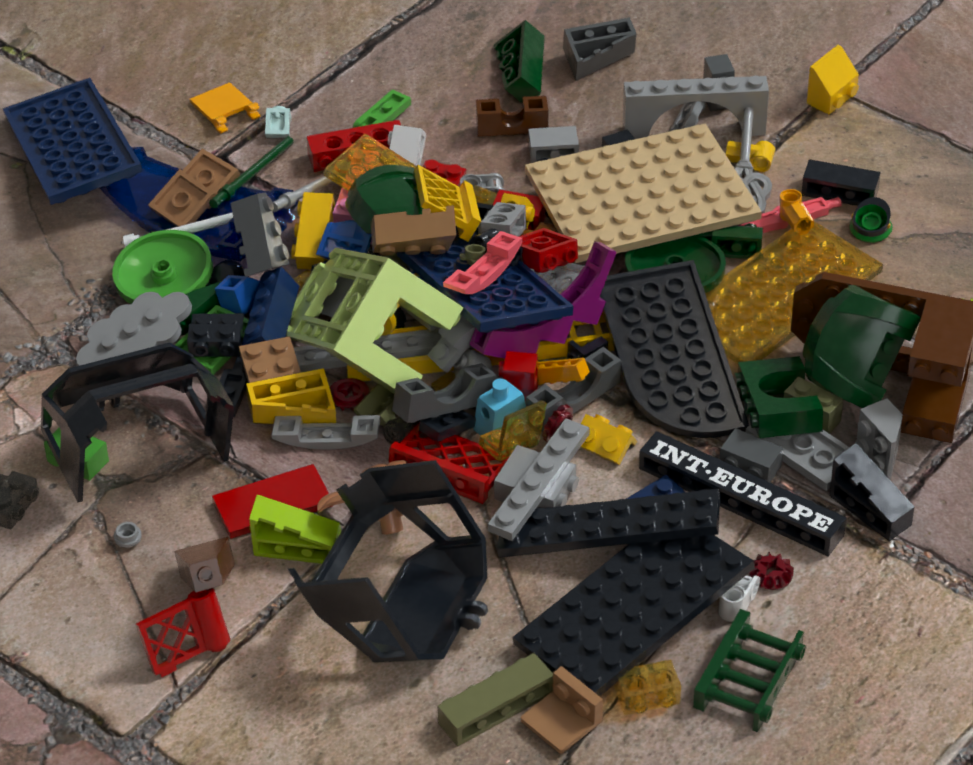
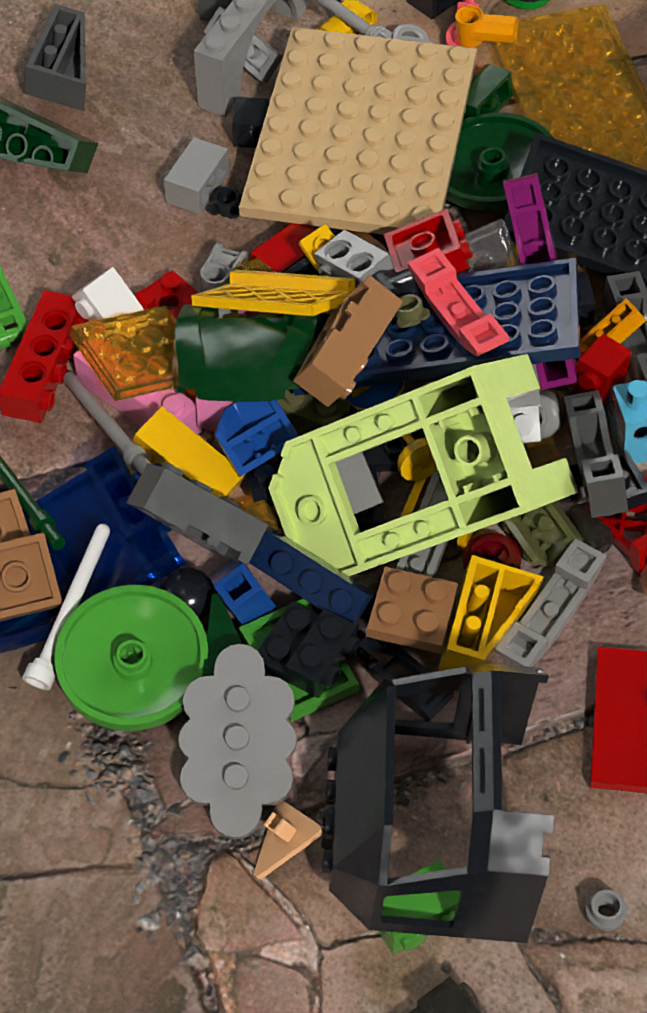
camera: 60 degrees left, 10 degrees up
(494, 121) = (111, 203): reddish brown arch -> none

